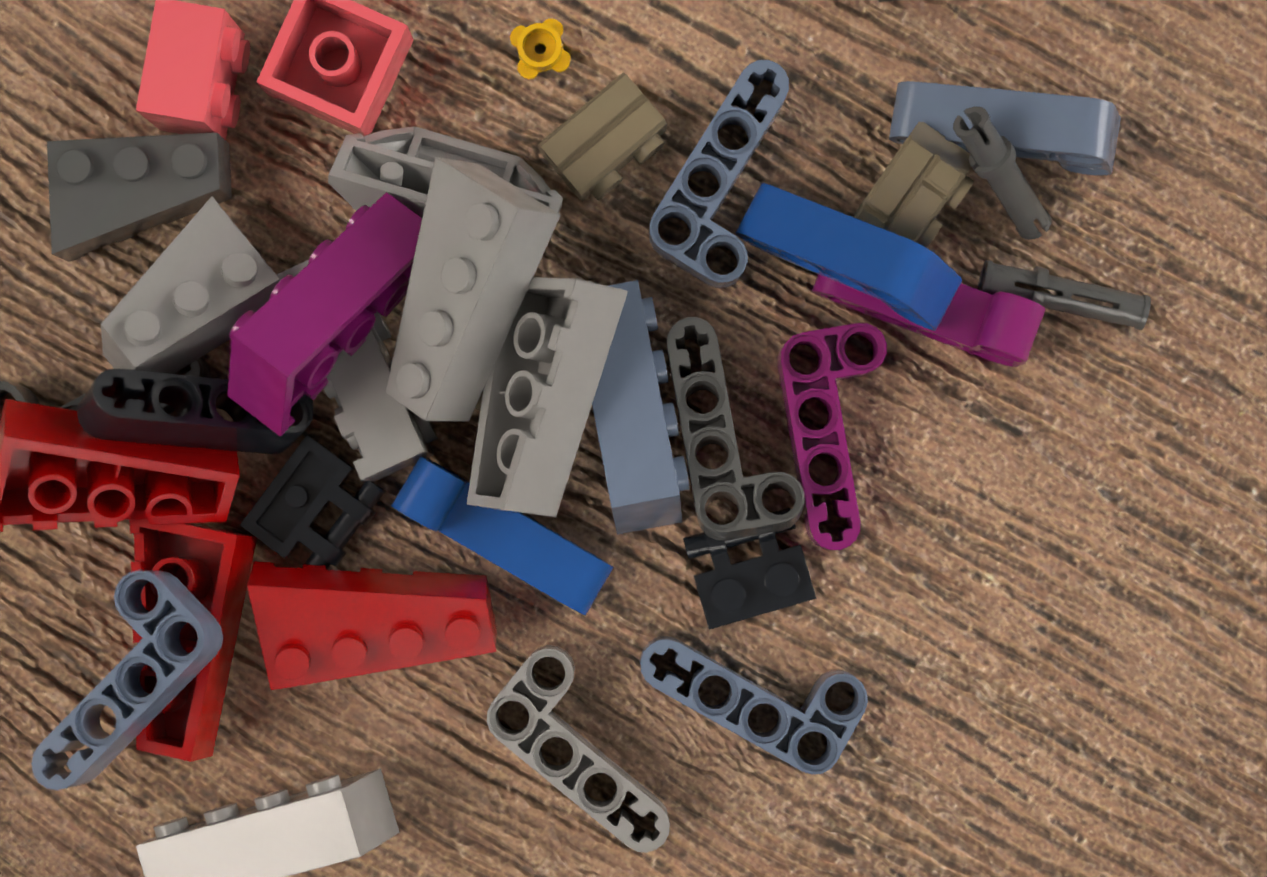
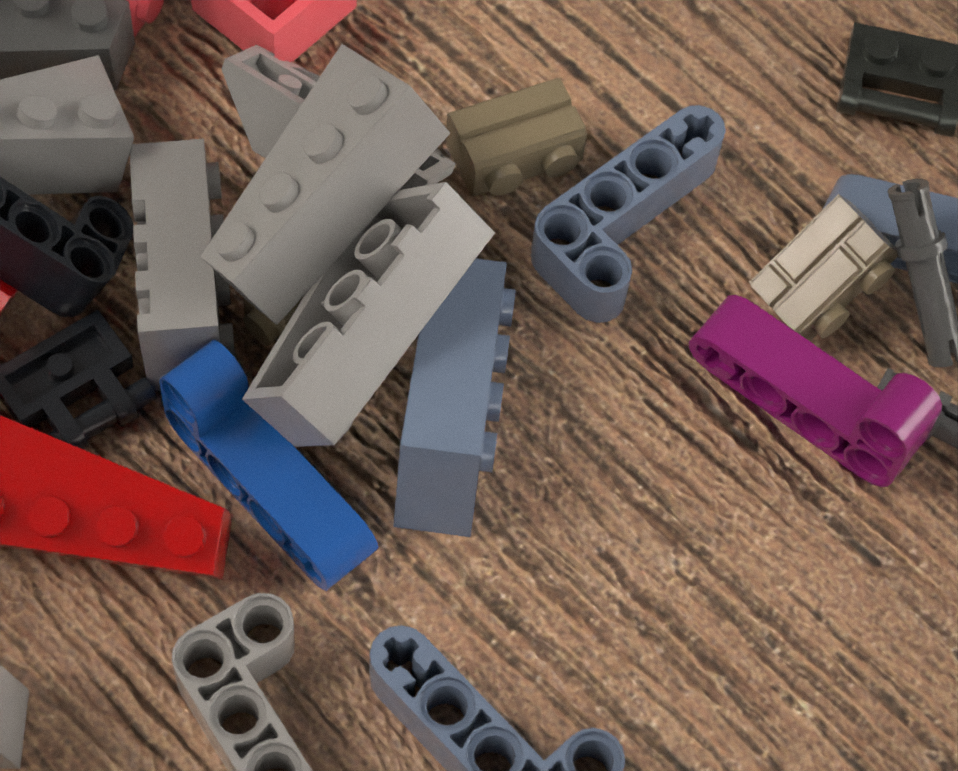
camera: 15 degrees right, 25 degrees down
(321, 311) = (152, 163): magenta wedge -> none
(544, 33) = (480, 35): yellow plate -> none
(718, 429) = (533, 484): dark grey beam -> none
(752, 585) = (530, 622): black plate -> none
(831, 439) = (659, 489): magenta beam -> none
(852, 253) = (754, 296): blue beam -> none

